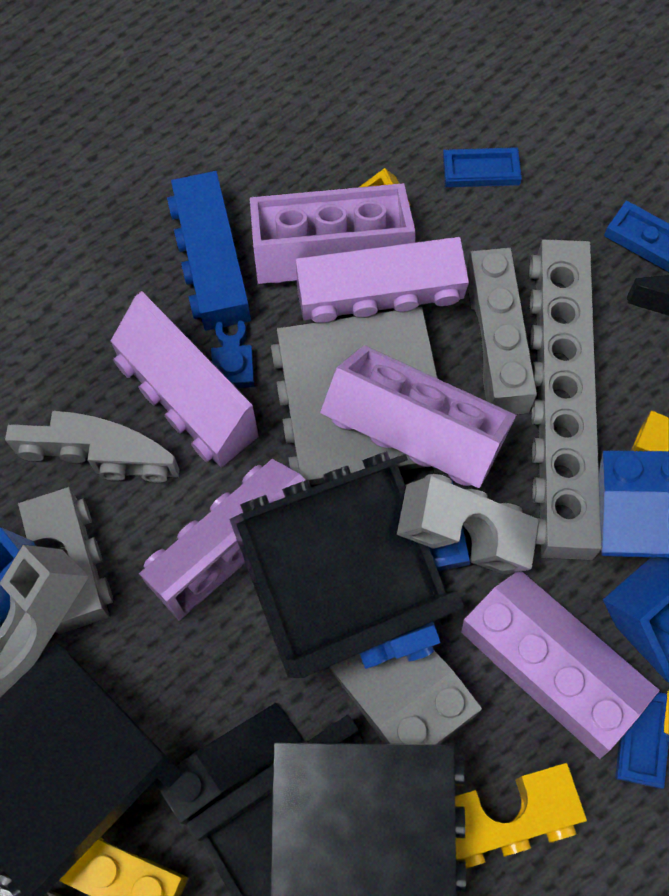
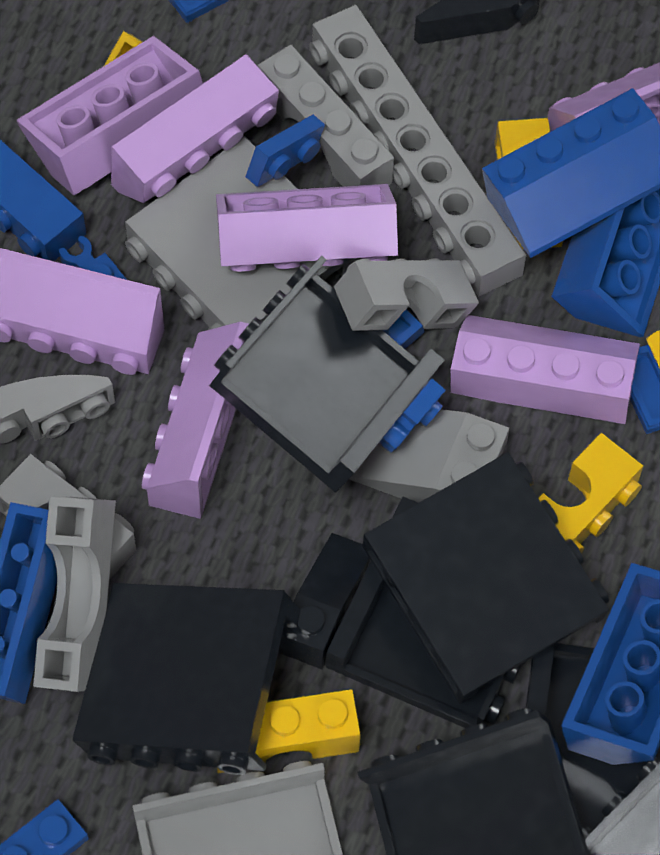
camera: 35 degrees left, 5 degrees down
(440, 338) = (285, 150): none -> blue plate

